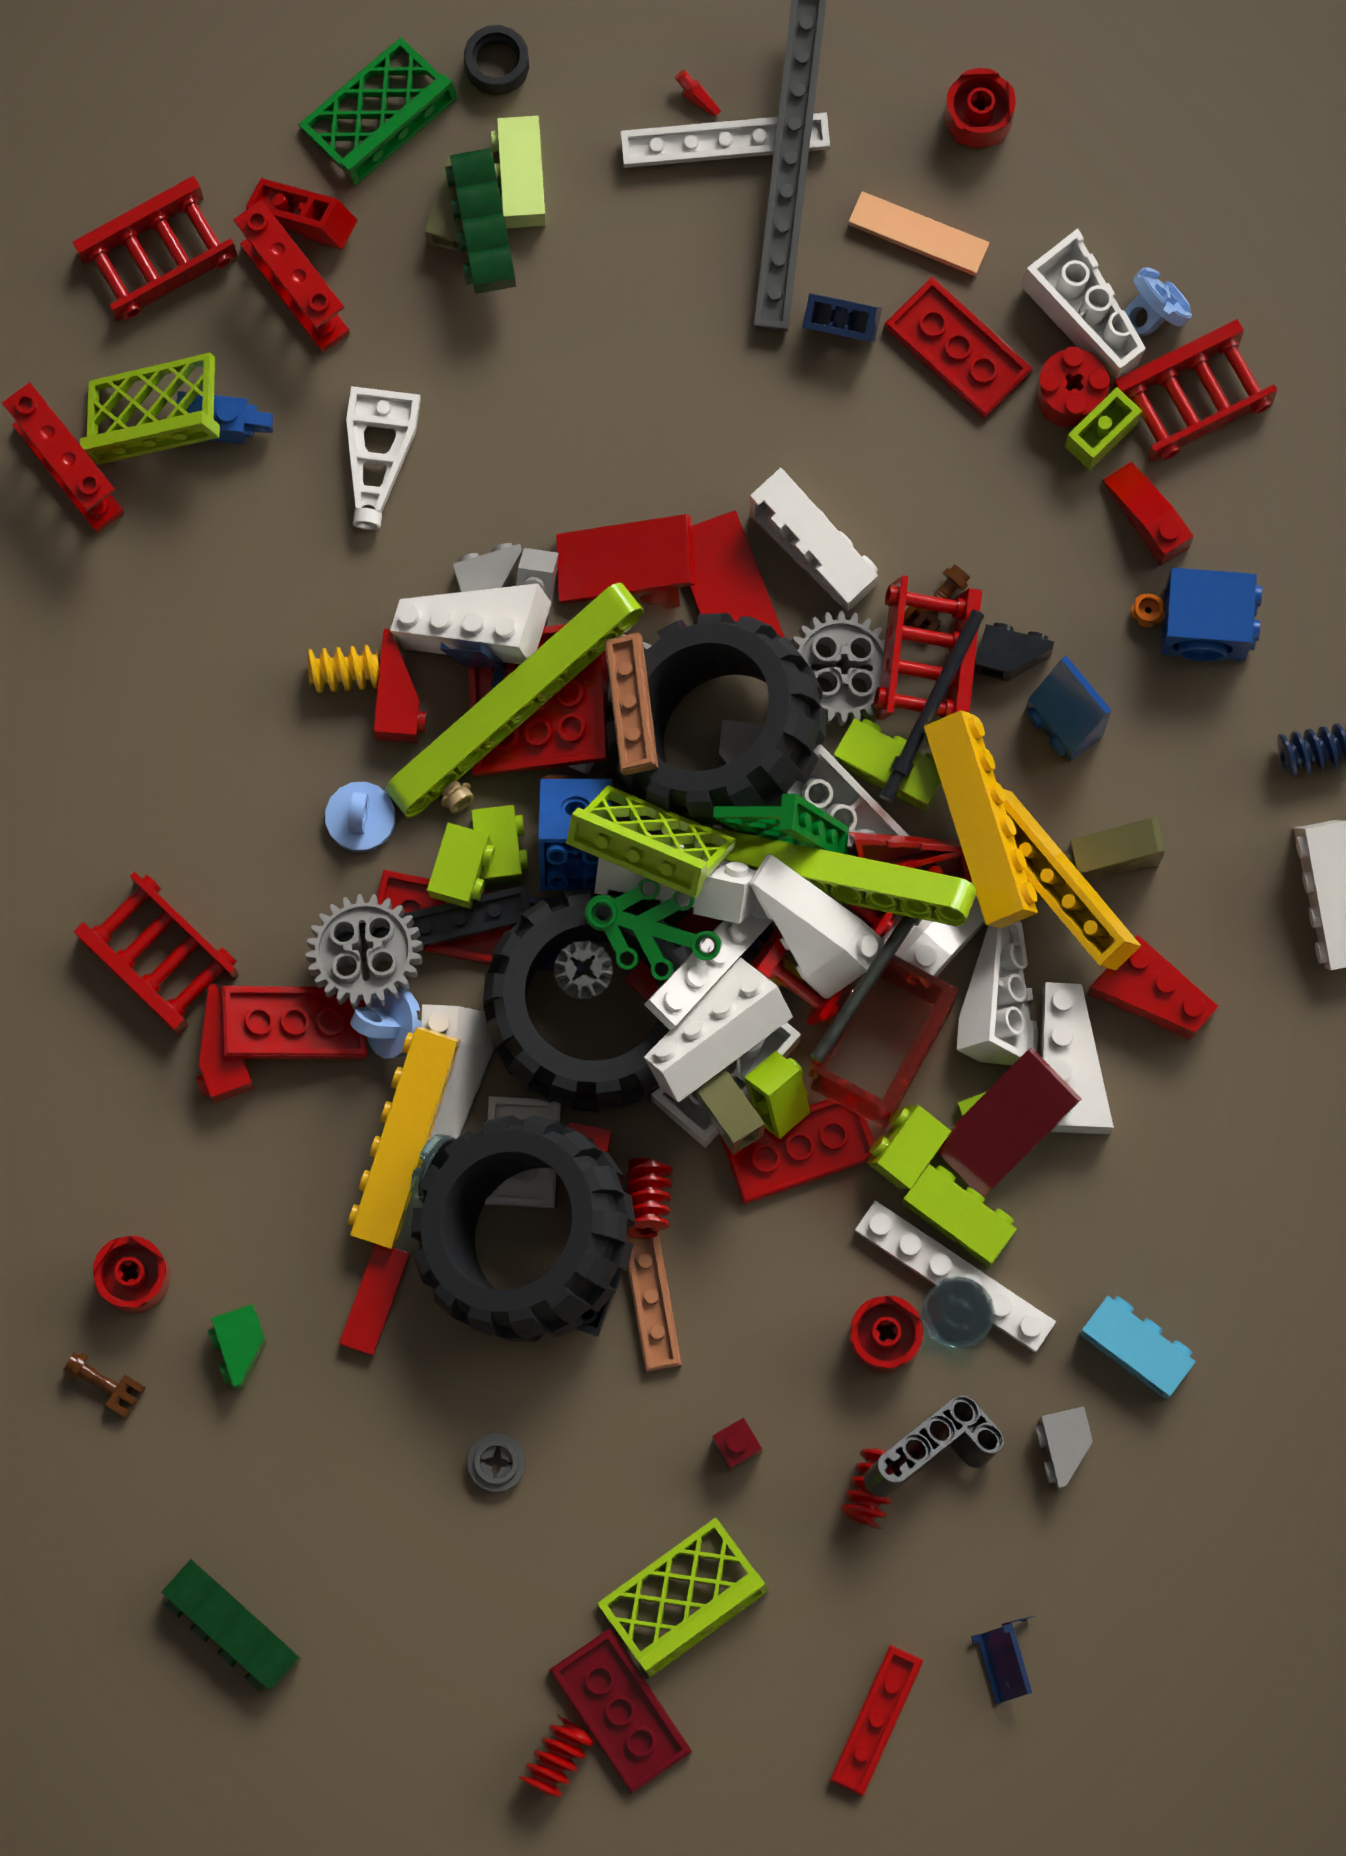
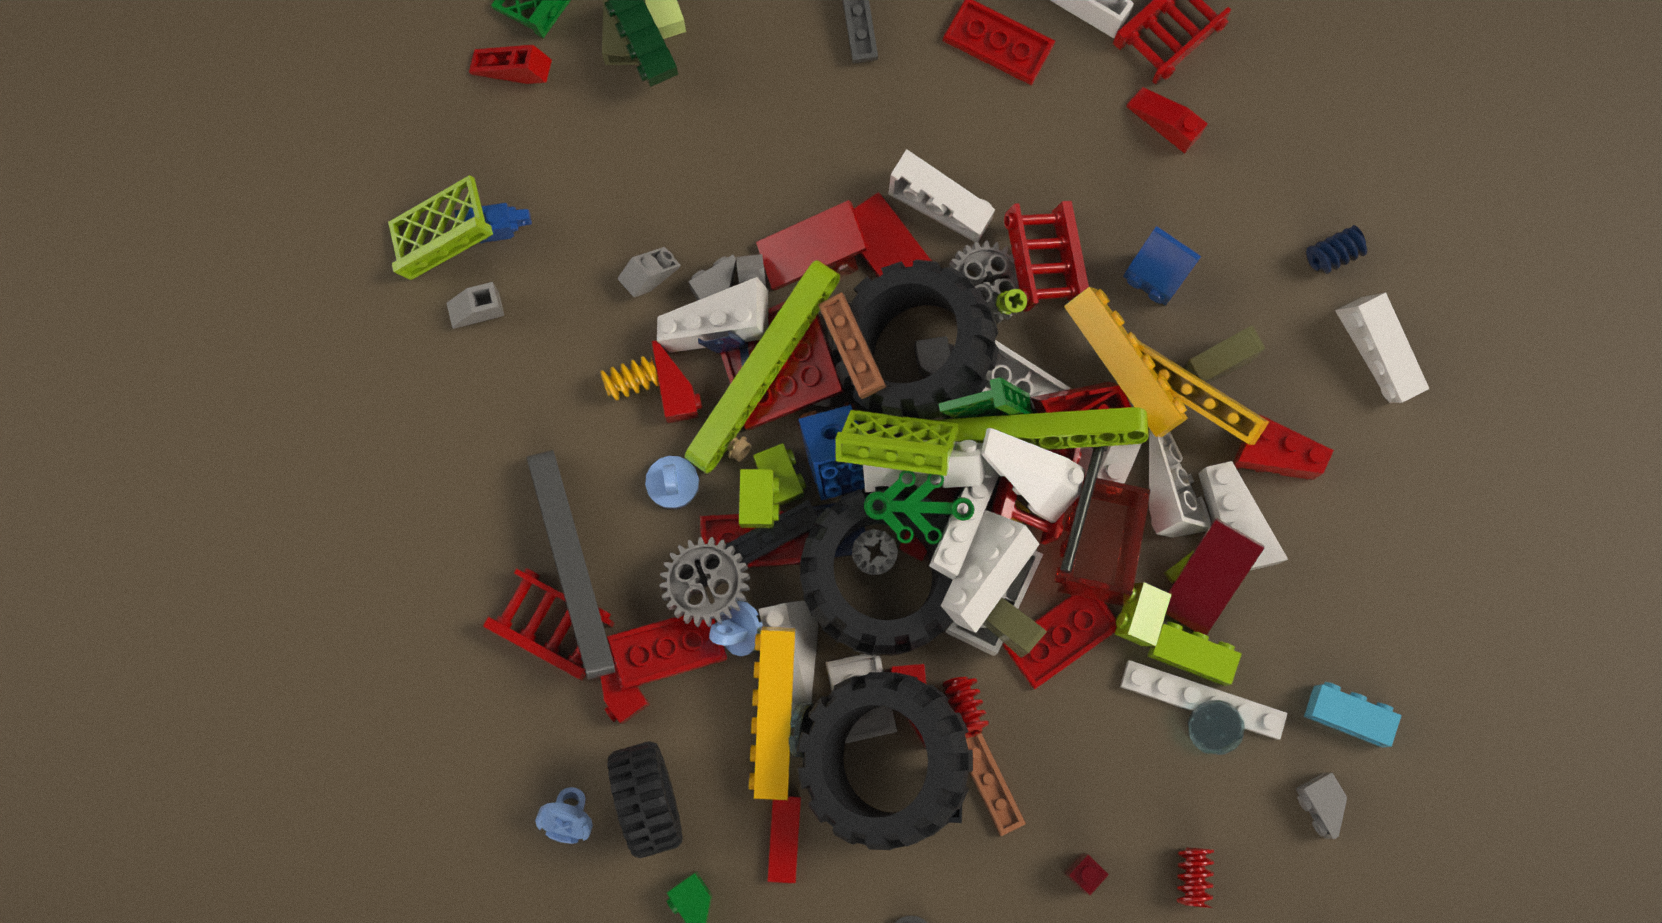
camera: 20 degrees left, 0 degrees up
(63, 457) = (382, 279): red fence -> none
(111, 1198) = (564, 821): none -> light blue tile
(125, 1254) = (582, 884): red brick -> none
(154, 215) = (402, 93): red fence -> none
(171, 522) = (475, 305): none -> light grey slope
(203, 883) = (571, 565): none -> dark grey beam
(216, 1194) = (644, 799): none -> black tyre
(291, 276) = (514, 107): red fence -> none
(379, 410) = (609, 187): white plate -> none
(405, 535) = (648, 271): none -> light grey slope
(778, 1093) = (1040, 600): lime brick -> none
(842, 317) = (914, 38): dark blue brick -> none
(870, 699) = (1017, 297): none -> lime bush
(870, 755) = (1044, 340): lime brick -> none
(881, 1313) = (1184, 751): red brick -> none
(902, 765) = (1055, 338): black bar -> none
(949, 1431) = (1240, 815): black beam -> none
(955, 579) = (1047, 199): reddish brown hinge -> none
(1010, 653) = (1102, 239): black slope -> none
(1071, 369) = (1088, 45): red brick -> none
(1103, 428) = (1119, 67): lime brick -> none
(1148, 601) = (1193, 182): orange plate -> none
(1210, 614) = (1235, 175): blue brick -> none

